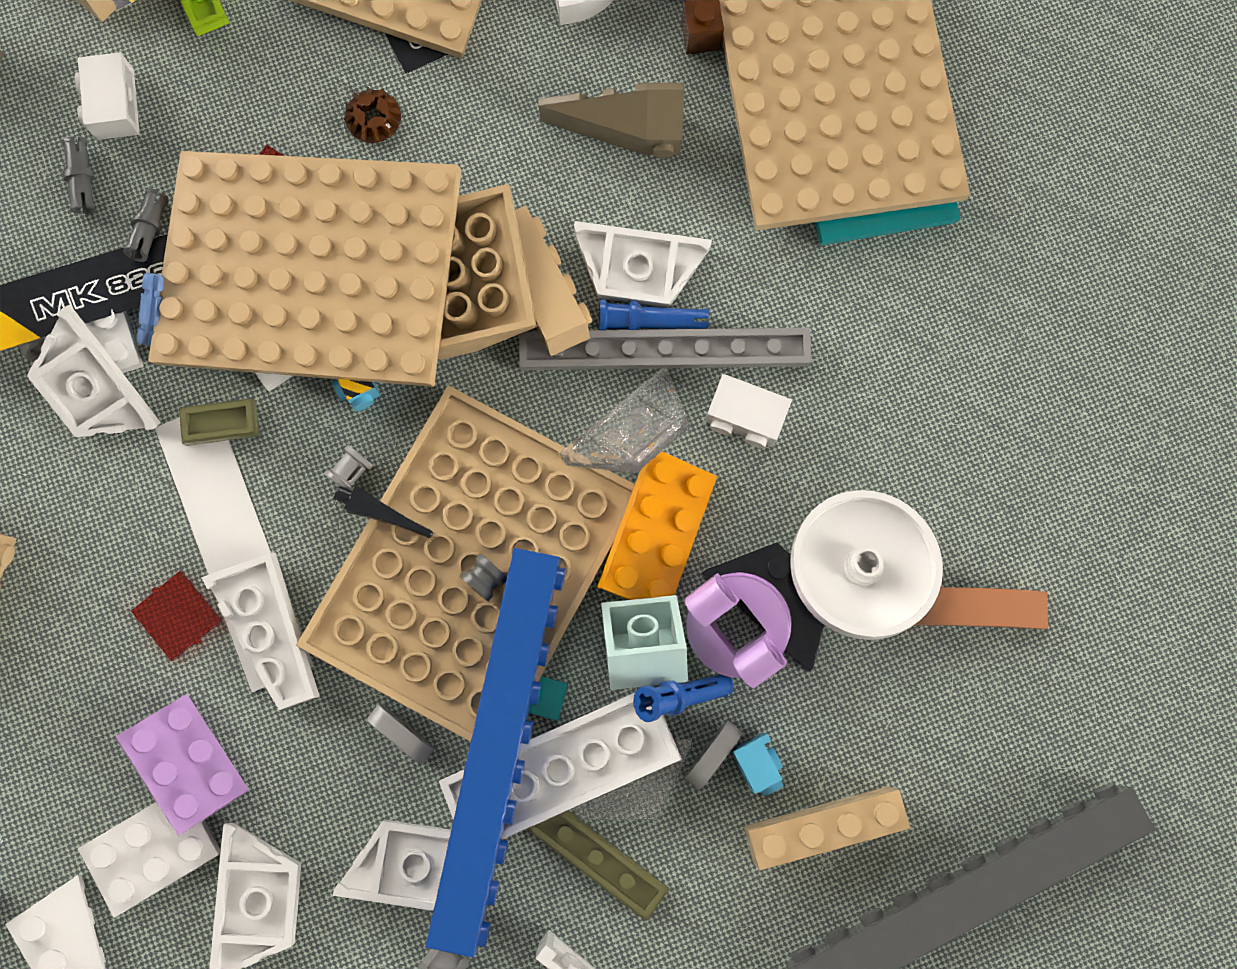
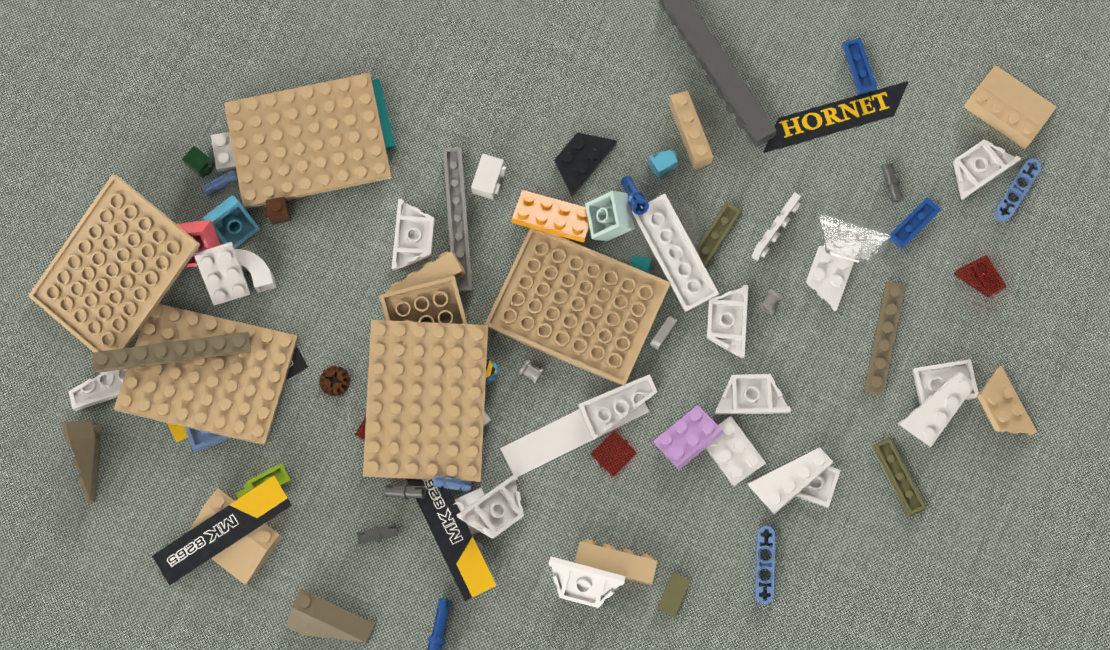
camera: 85 degrees left, 5 degrees down
(107, 96) = (331, 522): white brick -> none
(219, 422) = (510, 442): olive tile -> none
(365, 505) = (550, 357): black piece -> none
(484, 577) = (584, 293): dark grey wheel -> none
(494, 755) = (666, 280): blue brick -> none
(632, 430) = (502, 228): clear wing -> none
(633, 317) = (441, 235): blue pin -> none
(636, 120) = (335, 231): dark tan wedge -> none
(713, 755) = (661, 183): light grey beam -> none
(758, 657) = (611, 162): lavender piece -> none
(866, 565) = (562, 115): white dish -> none
(988, 608) = (579, 68): nougat slope -> none

